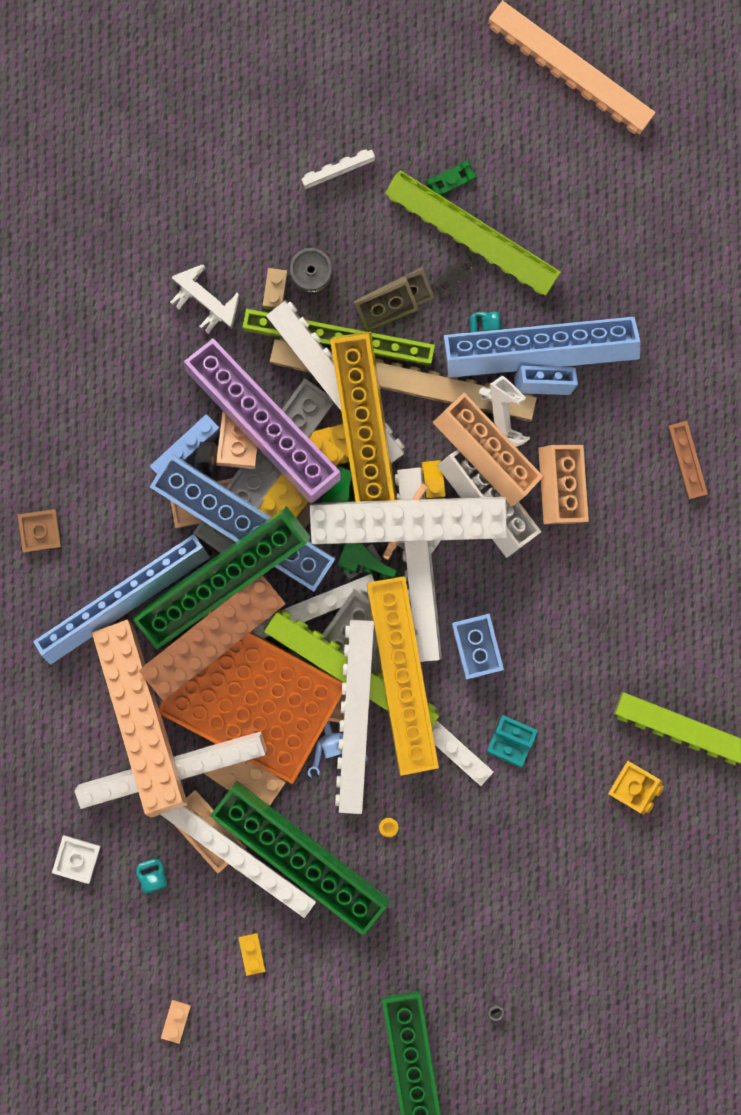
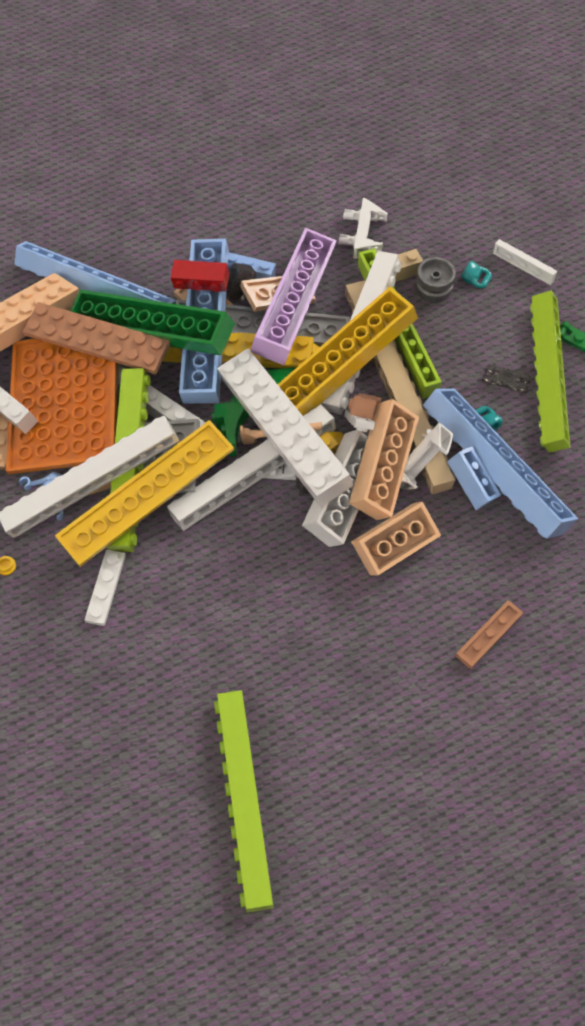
camera: 55 degrees right, 25 degrees down
(39, 530) = (116, 213): medium nougat plate -> none
(204, 505) = (199, 275): none -> red brick
(319, 227) = (472, 273): none -> teal piece
(394, 300) = (457, 343): dark tan slope -> none
(420, 430) = (363, 405): none -> nougat brick
(434, 446) = (359, 423): none -> white plate
(477, 646) = (209, 547): light blue brick -> none
(511, 741) = (141, 625): teal slope -> none
(636, 788) = (156, 757): yellow plate -> none

